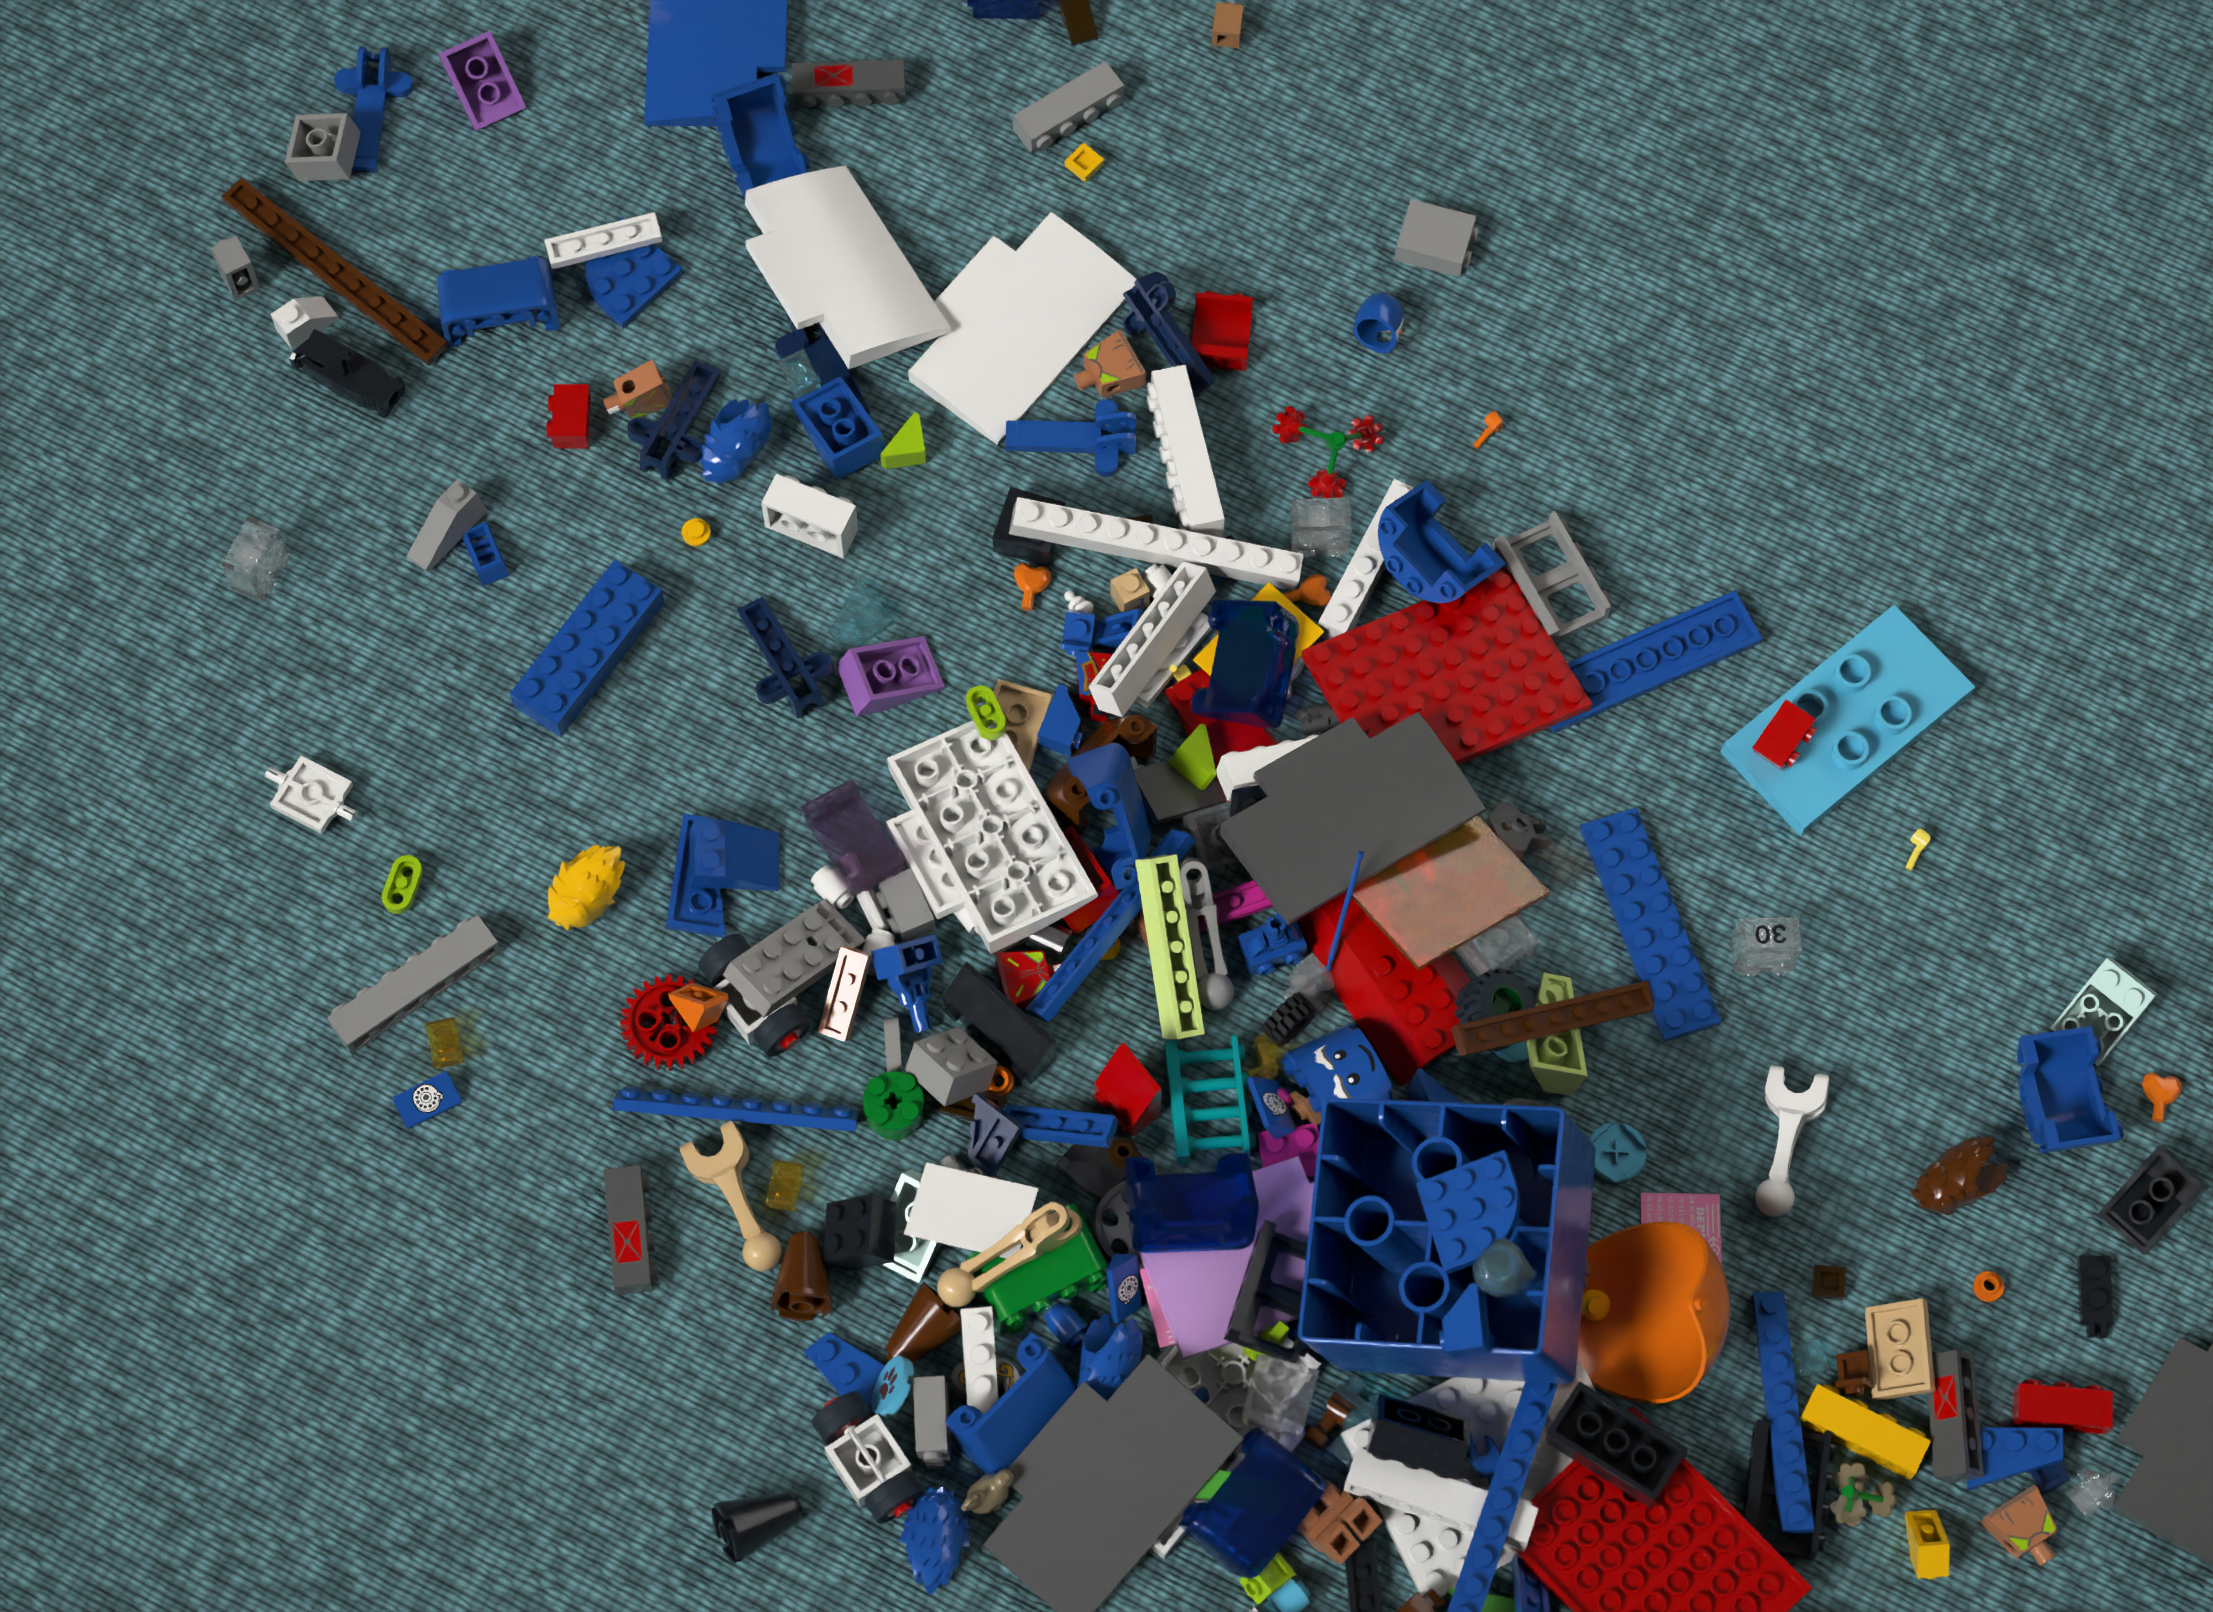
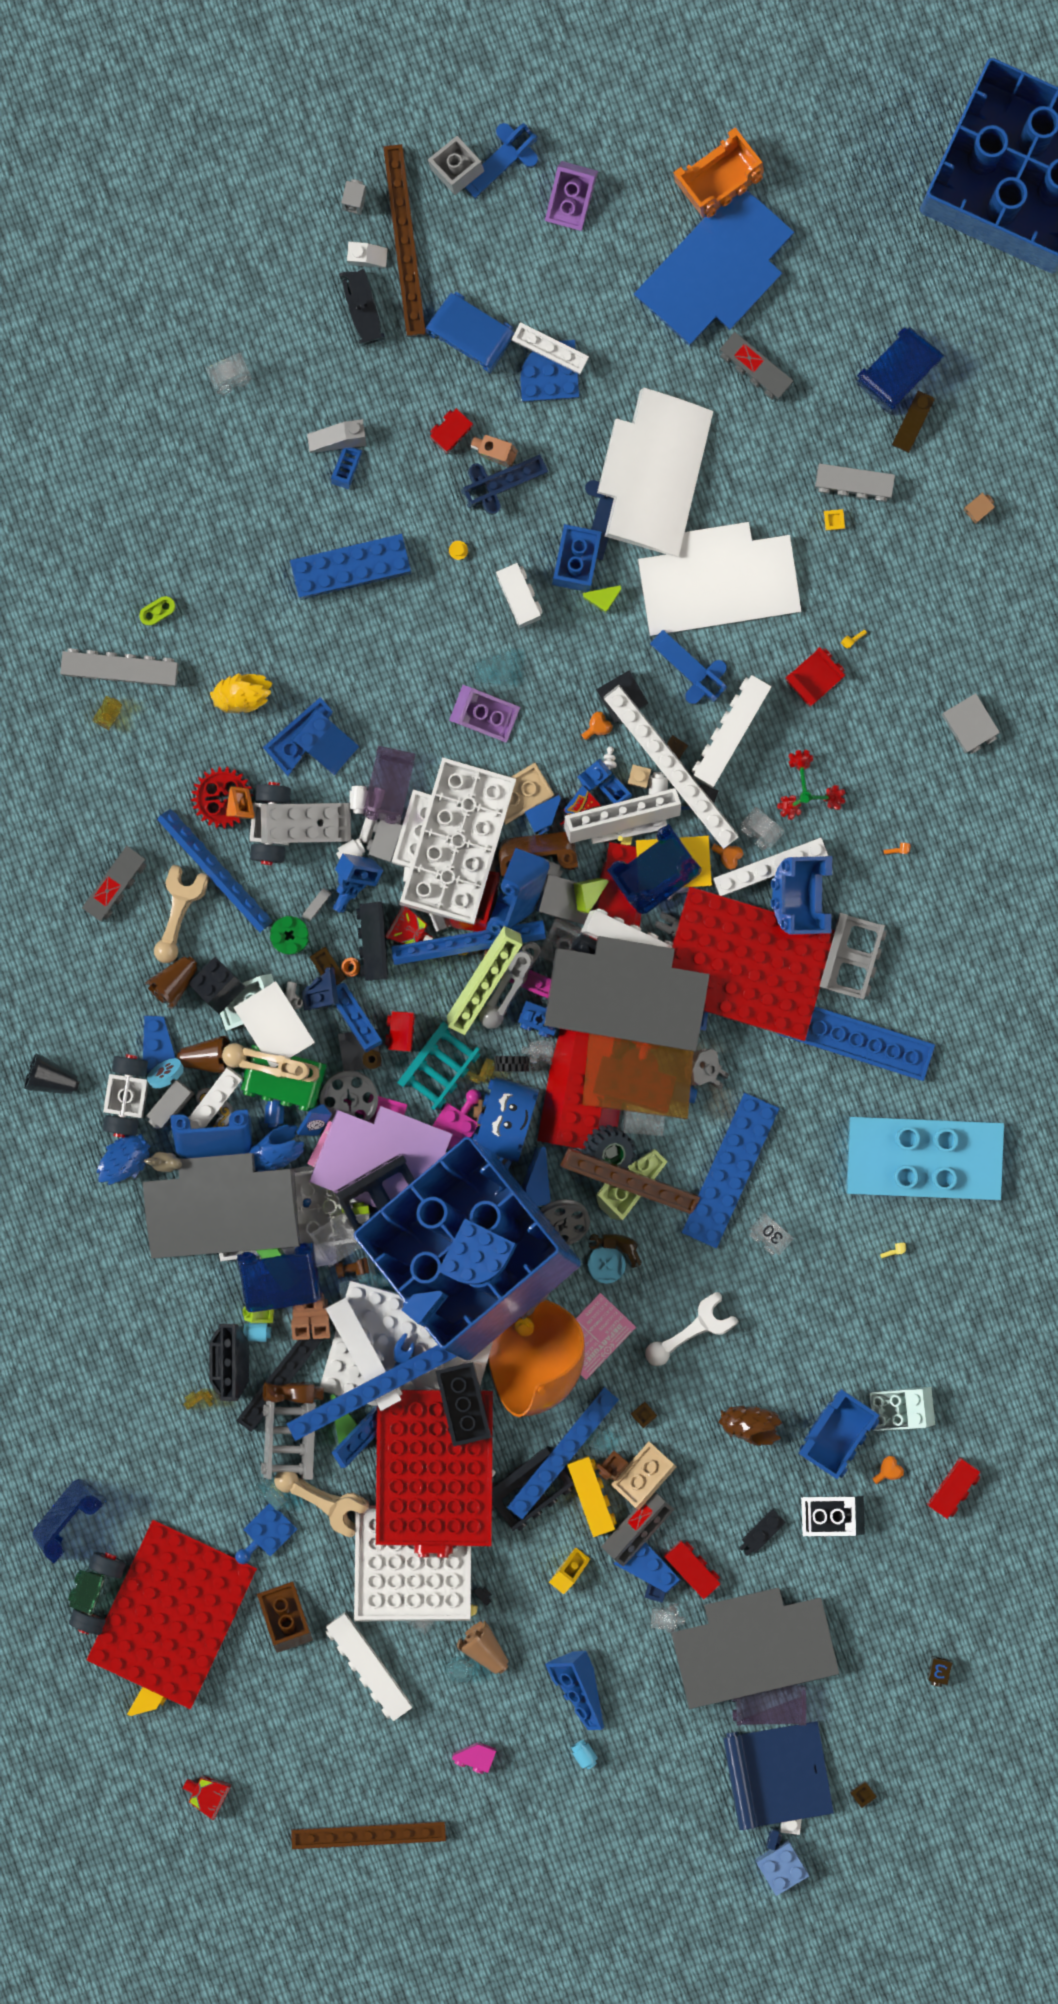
camera: 45 degrees right, 20 degrees up
(311, 794) = (153, 523): white plate -> none
(427, 1100) = (76, 733): blue slope -> none
(734, 440) = (518, 519): blue head -> none
(758, 133) = (678, 362): blue cylinder -> none
(783, 660) = (439, 657): dark blue piece -> none
(784, 1185) = (204, 928): clear yellow bracket -> none
(799, 374) = (583, 511): clear light blue plate -> none
(844, 993) = (314, 860): plate -> none
(951, 1066) = (330, 943): light grey brick -> none
(987, 714) = (509, 779): lime plate -> none
(1111, 367) = (741, 646): nougat torso -> none
(1158, 296) = (789, 633): dark blue piece -> none
(1191, 1208) = (375, 1116): clear blue windscreen -> none
(1221, 269) = (847, 642): none -> yellow hand
(1271, 1107) = (462, 1098): blue slope -> none
(1344, 910) = (580, 1040): blue piece -> none
(1377, 315) = (902, 742): blue piece -> none
(1418, 1437) = (377, 1318): black brick -> none
(1502, 1269) = (458, 1298): clear light blue piece -> none
(1615, 1108) = (621, 1243): none -> dark brown arm
(1785, 735) = (878, 1143): red brick -> none
(1851, 1485) = (551, 1522): dark tan plant -> none
(1984, 1294) = (711, 1479): orange plate -> none
(2023, 1526) = (621, 1603): nougat torso -> none

